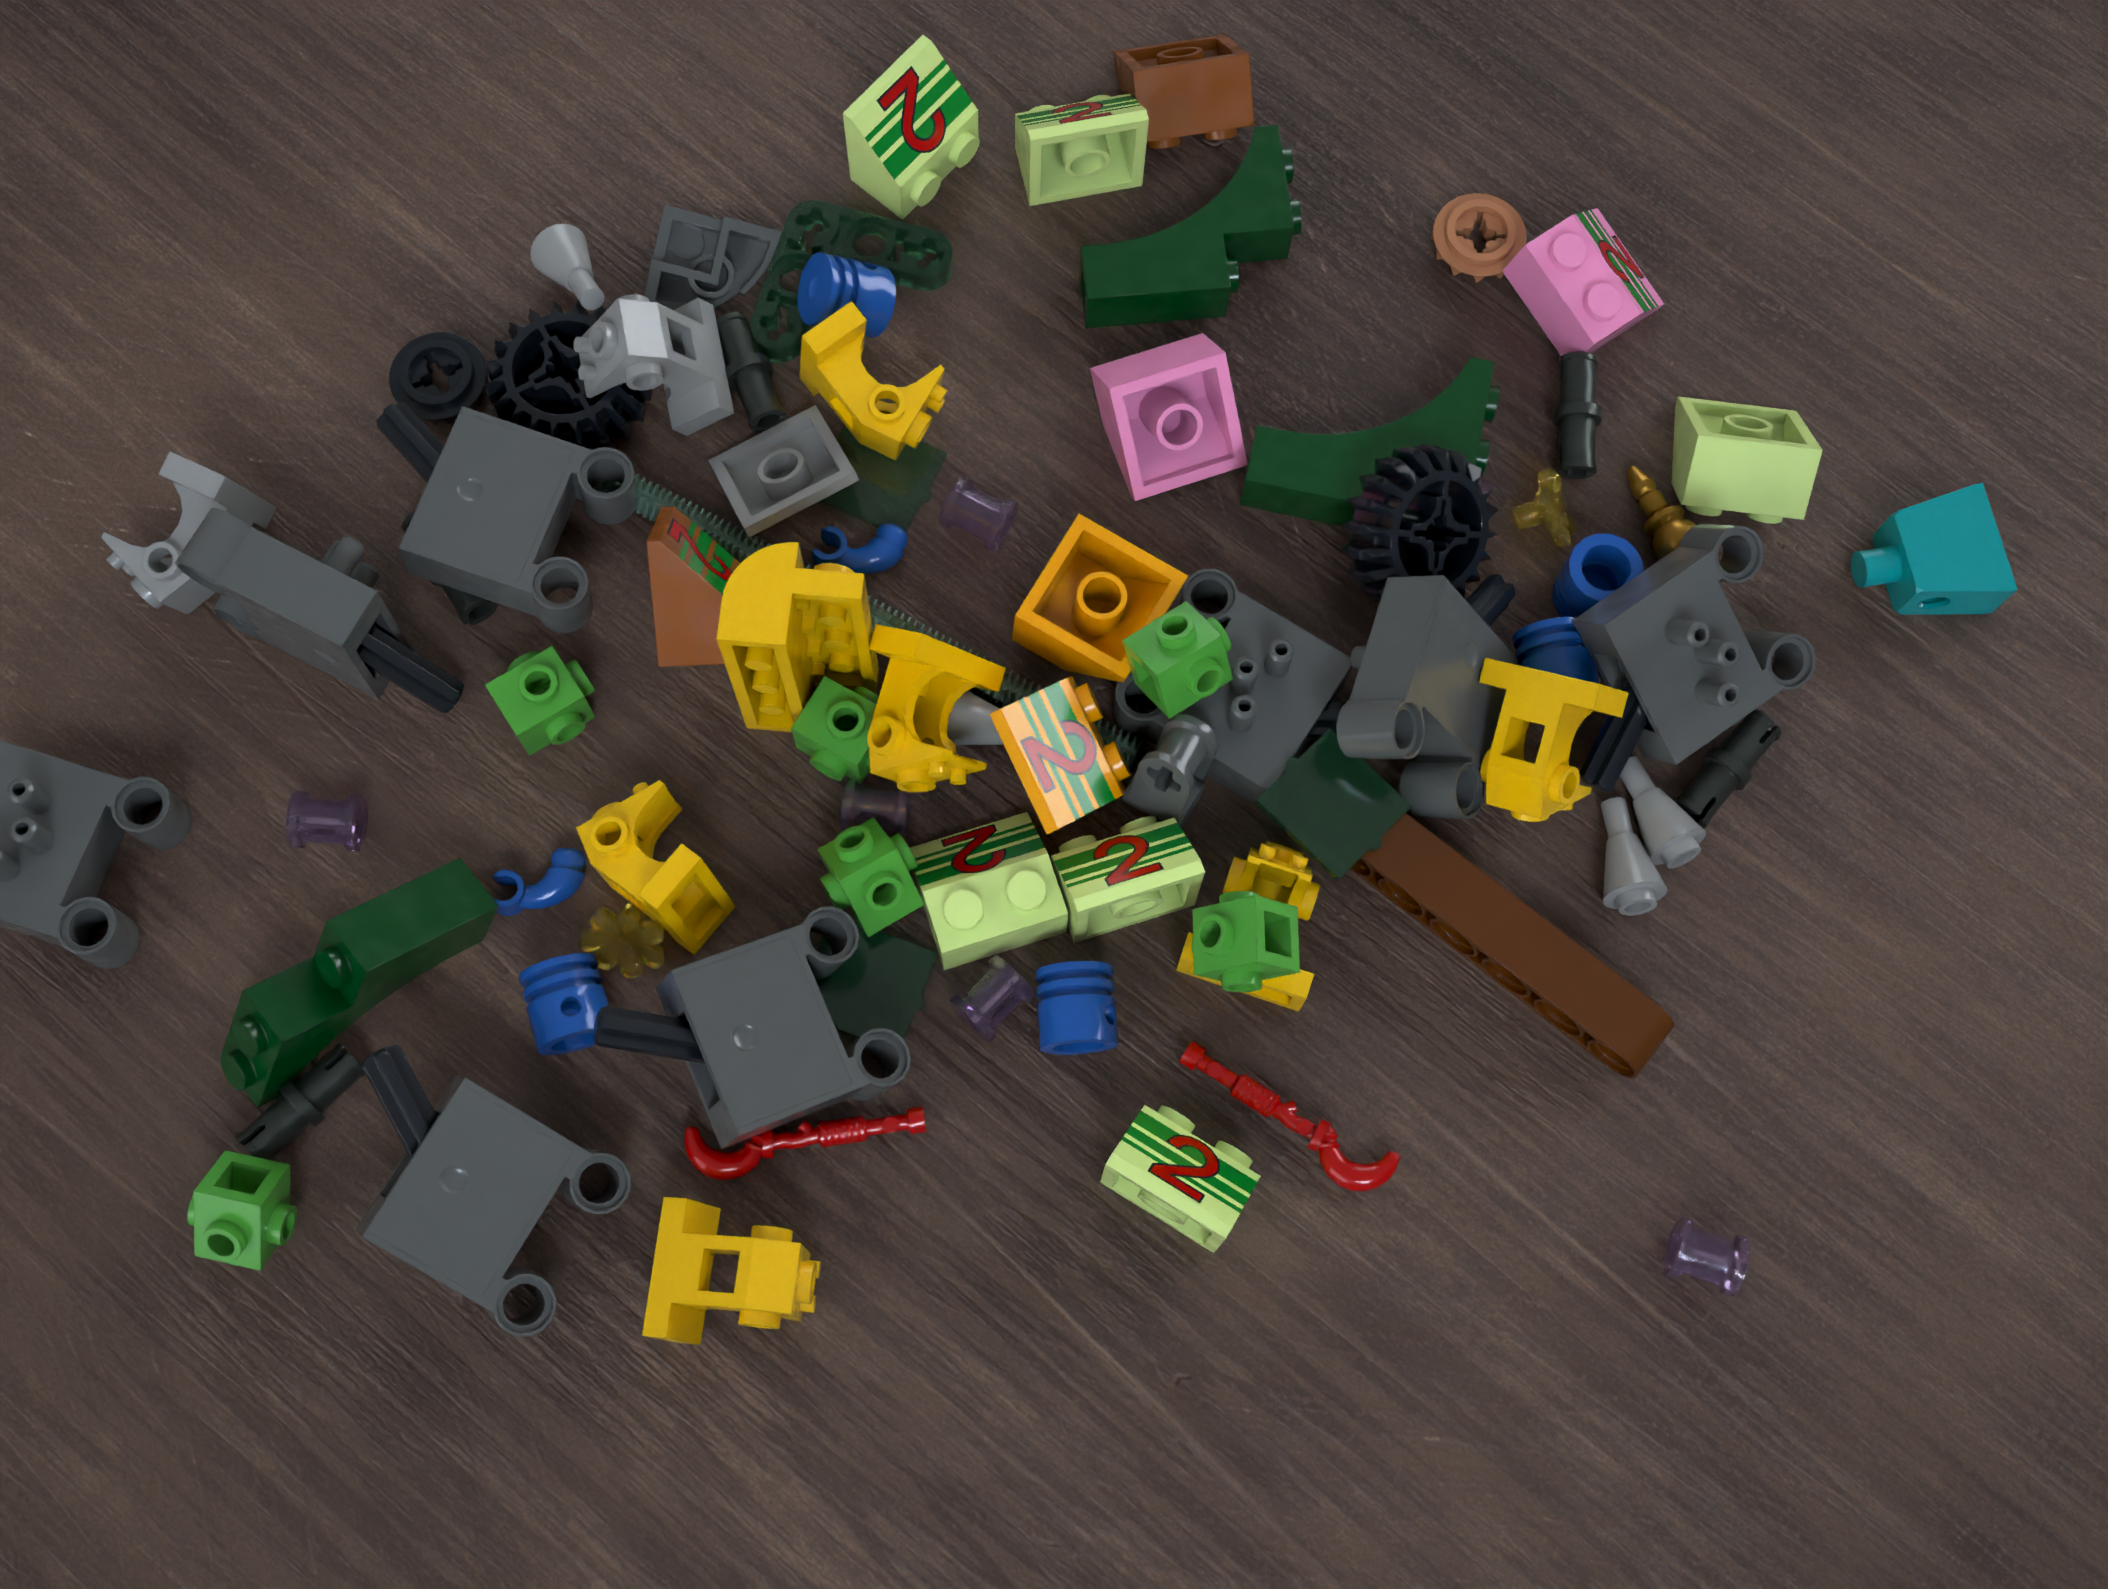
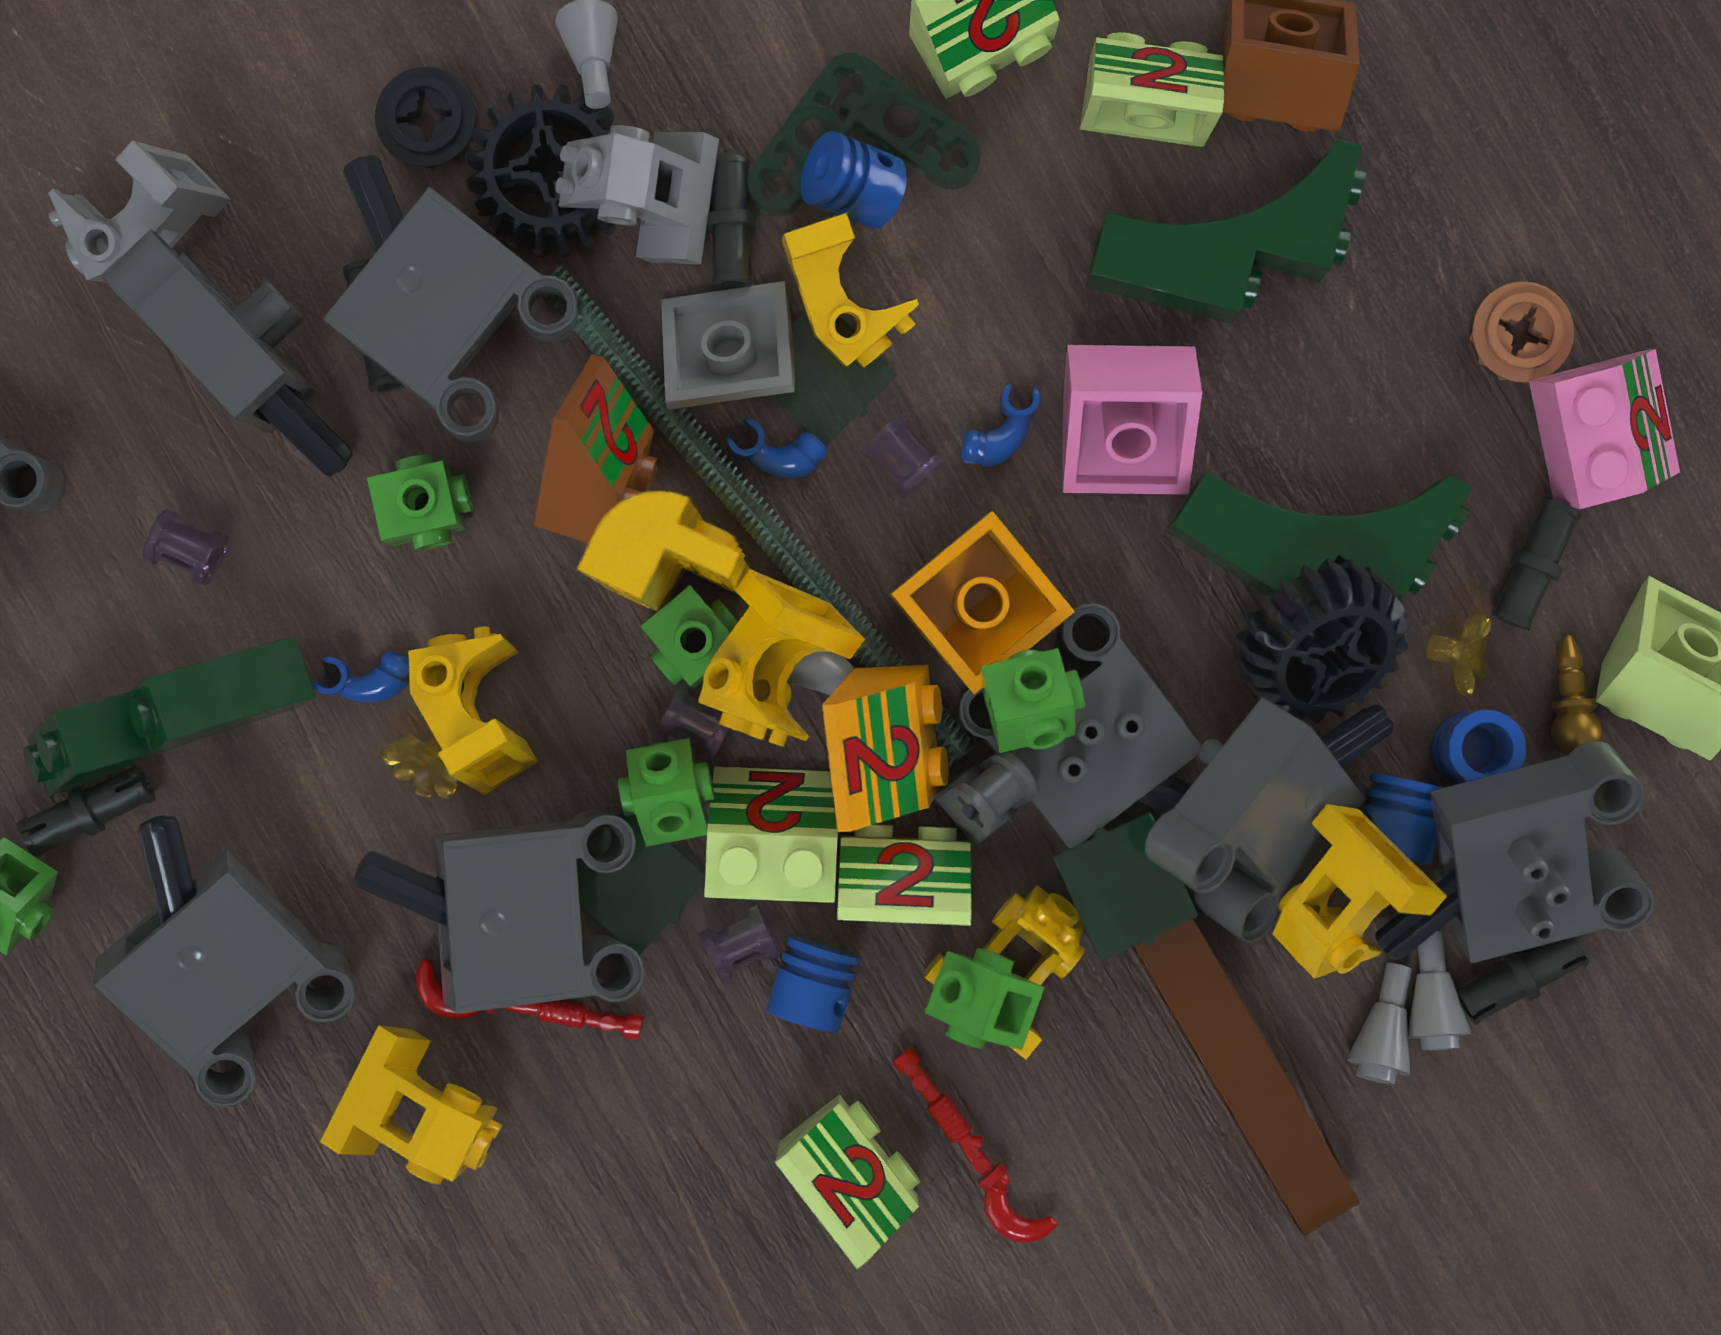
camera: 25 degrees right, 15 degrees up
(563, 1002) = (355, 793): blue piece -> none
(706, 258) = (726, 83): dark grey brick -> none
(1063, 475) = (1003, 442): none -> blue arm

